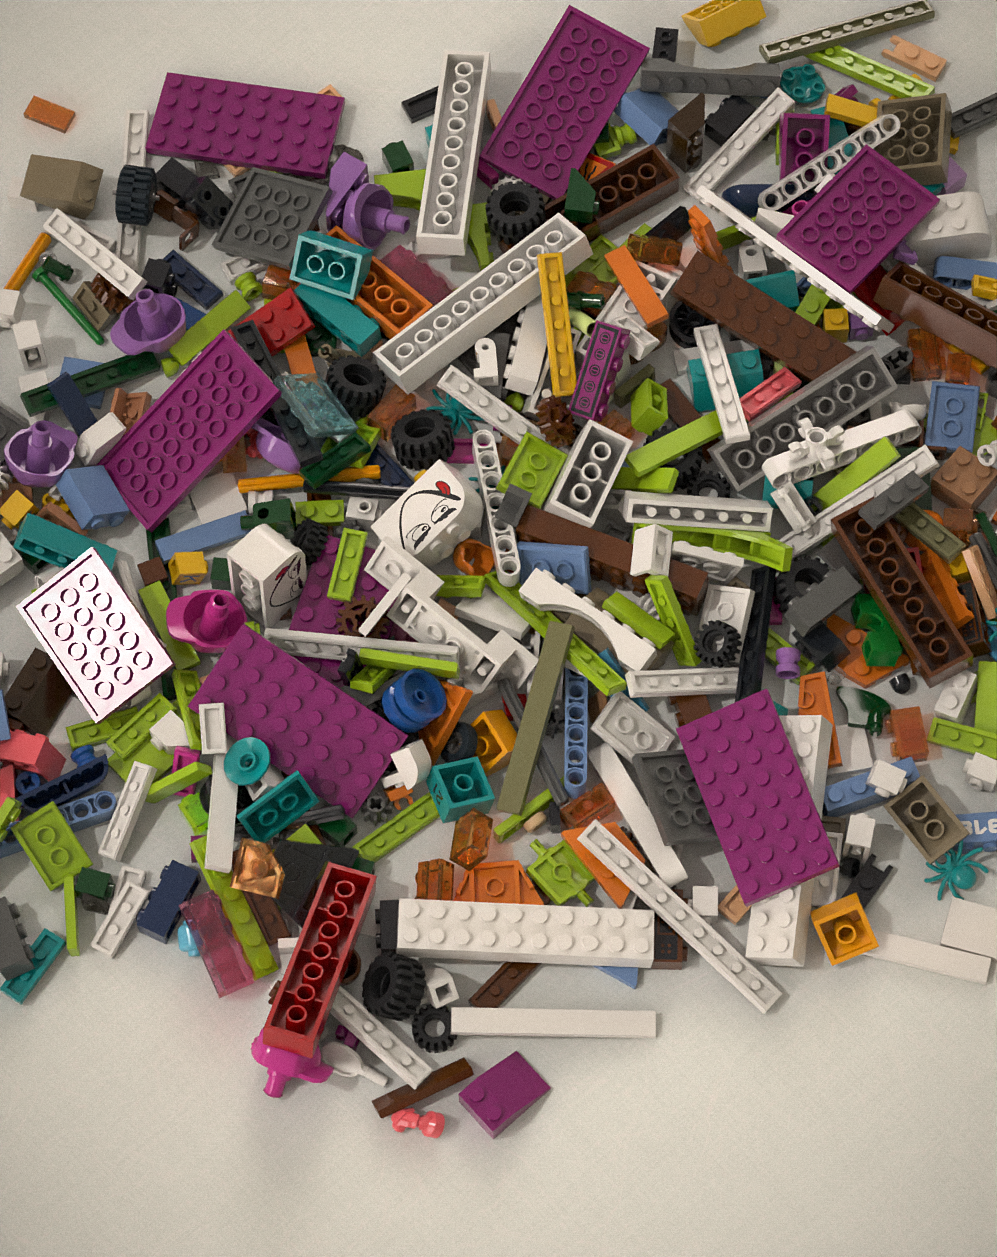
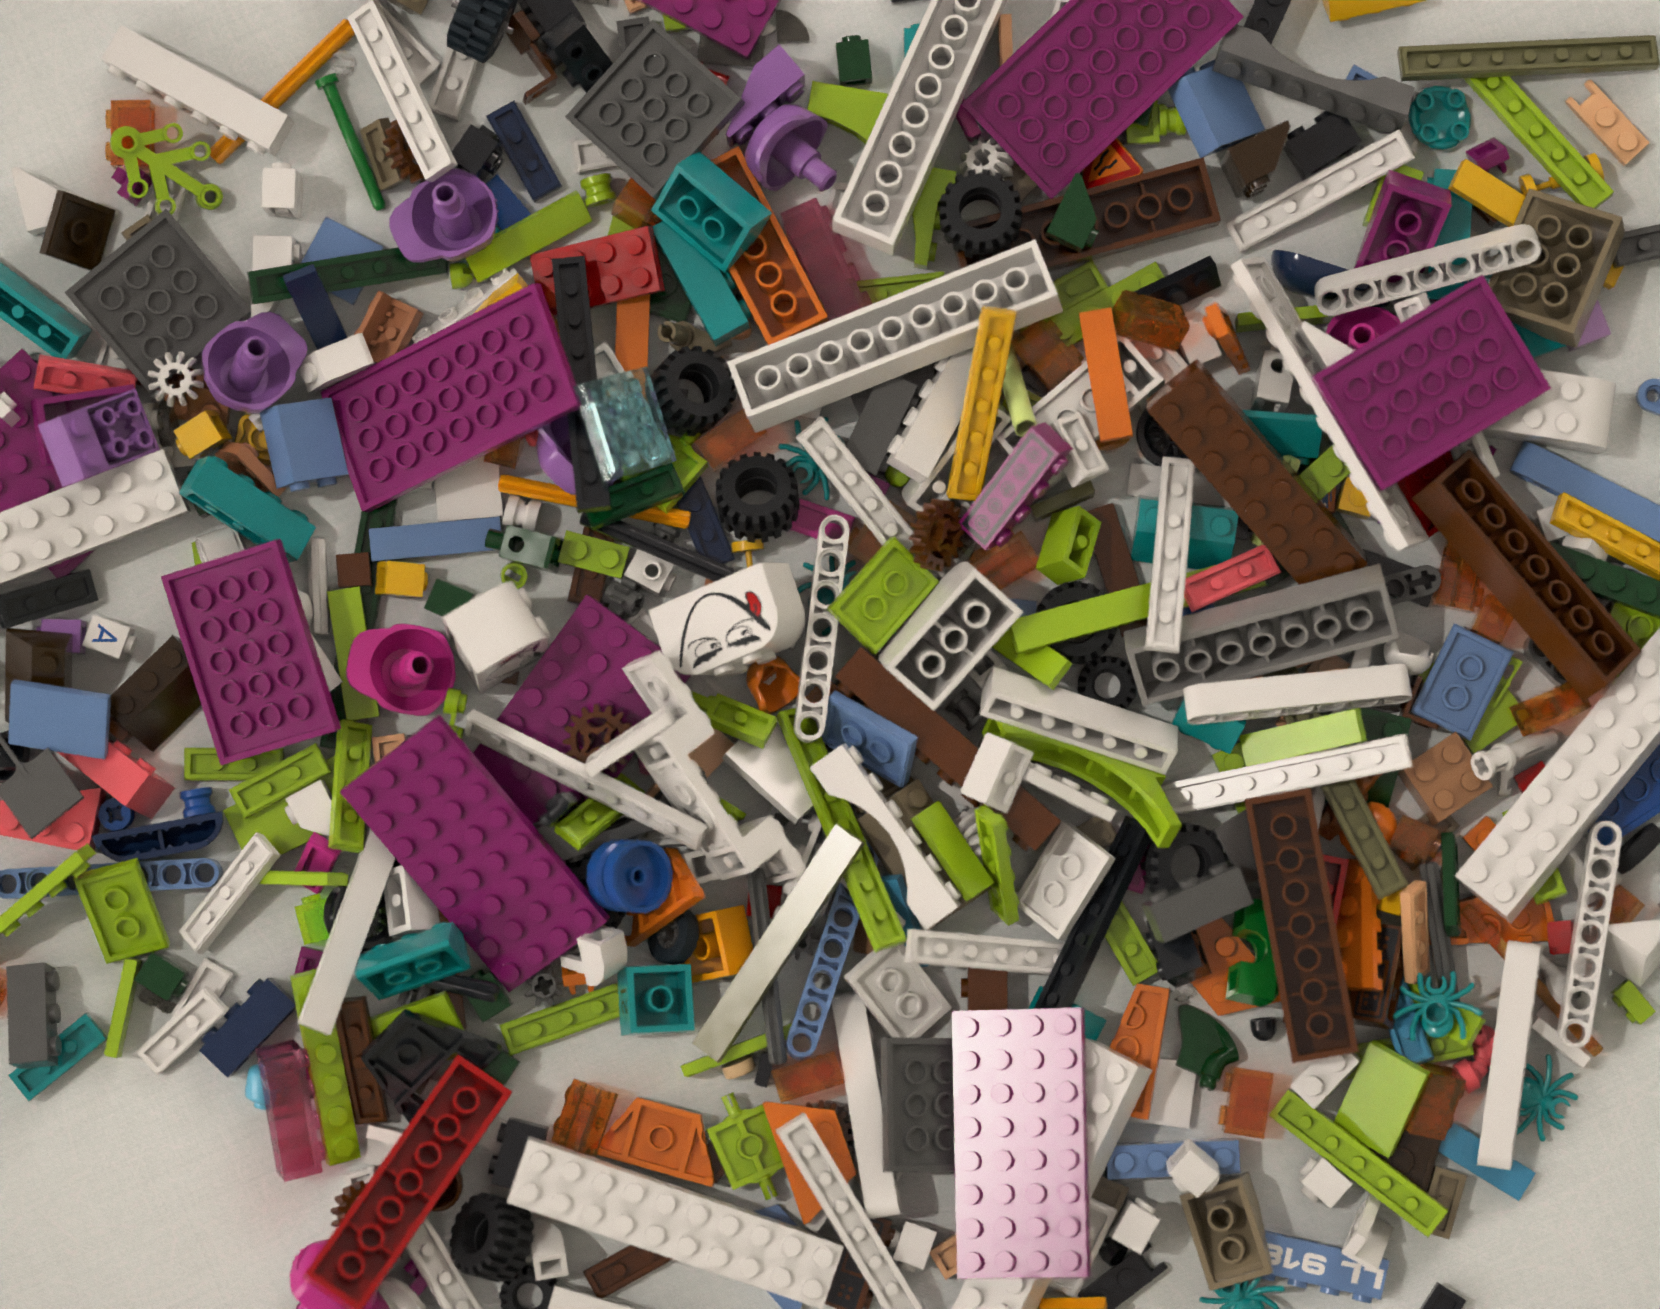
camera: 20 degrees right, 20 degrees up
(57, 268) = (358, 89): dark green pin -> none
(213, 728) = (362, 834): white tile -> none
(239, 758) = (381, 886): teal dish -> none
(257, 869) = (364, 1042): clear orange plate -> none
(310, 539) = (564, 598): black tyre -> none
(347, 565) = (603, 652): lime tile -> none
(409, 662) = (638, 826): lime tile -> none
(471, 839) = (648, 1072): clear orange brick -> none
(486, 357) = (875, 413): white leg -> none
(513, 505) = (840, 645): dark grey panel -> none
(585, 300) = (1027, 368): dark green pin -> none
(707, 637) = (1028, 906): black tyre -> none
(788, 663) = (1126, 963): medium lavender wheel -> none
(793, 507) = (1207, 755): white hinge -> none
(816, 443) = (1260, 675): white pin -> none
(818, 503) = (1240, 751): black hinge -> none
(893, 500) = (1334, 803): dark grey plate -> none
(905, 254) = (1480, 444): medium lavender tile -> none

